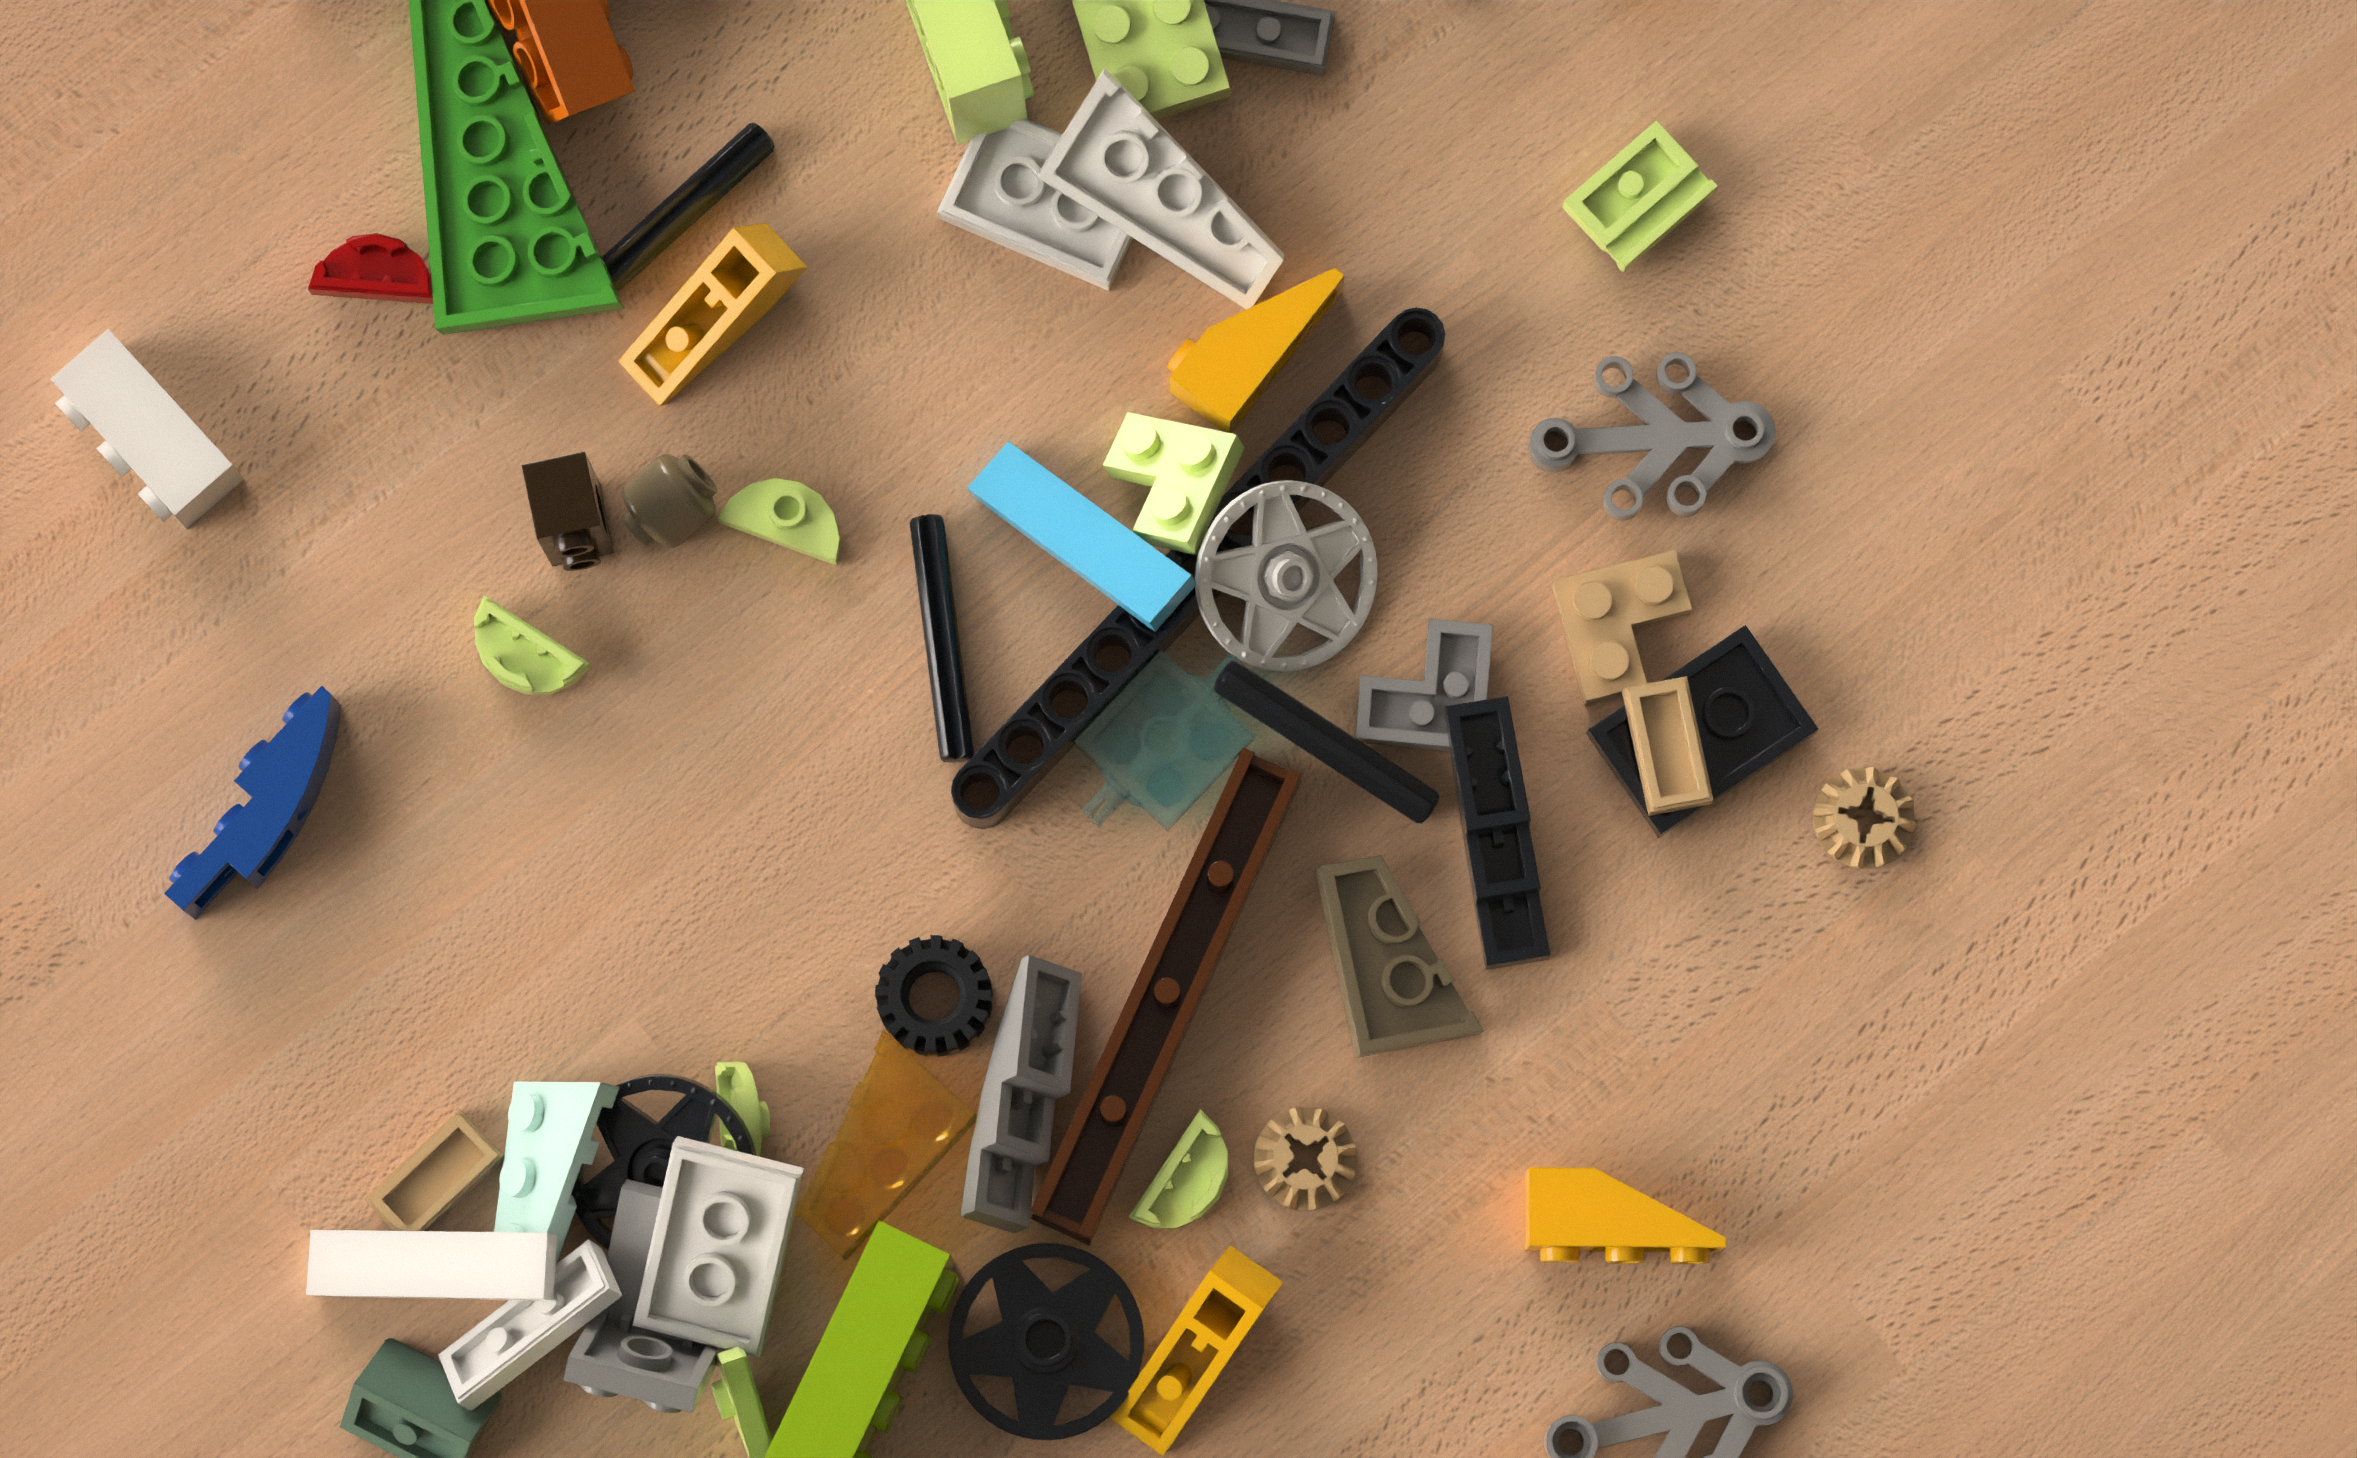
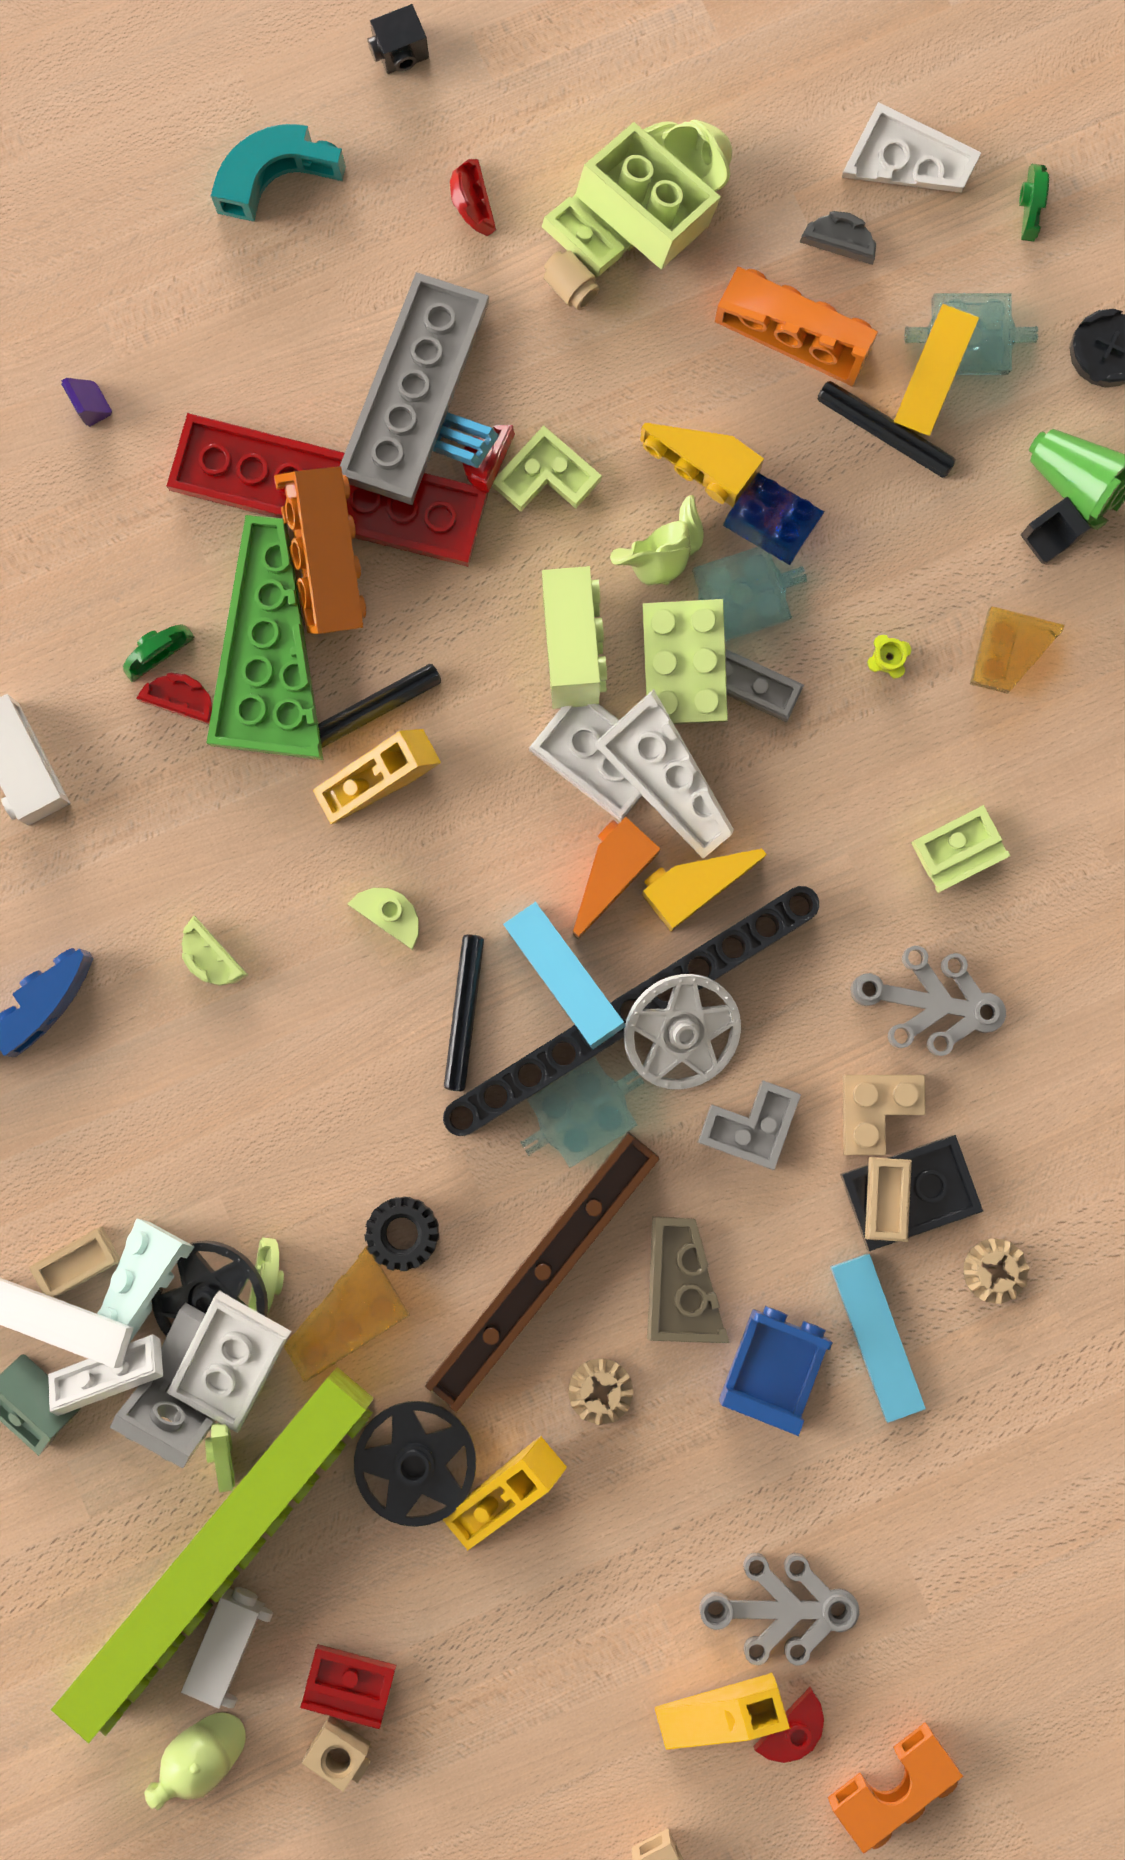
camera: 15 degrees right, 5 degrees up
(315, 210) = (154, 649): none -> green plate
(568, 511) = (255, 879): dark brown brick -> none
(669, 500) = (320, 886): dark tan head -> none
(1018, 1097) = (440, 1303): light grey slope -> none
(1121, 347) = (617, 863): none -> orange slope
(1186, 472) = (638, 951): yellowish green plate -> none
(1188, 1180) = (526, 1387): yellowish green plate -> none
(1326, 741) = (680, 1140): black axle -> none
(1496, 832) = (769, 1223): black slope -> none
(1565, 1050) = (775, 1369): none -> blue panel
(1597, 1213) = (762, 1473): yellow slope -> none
(1709, 965) = (877, 1338): none -> medium azure tile

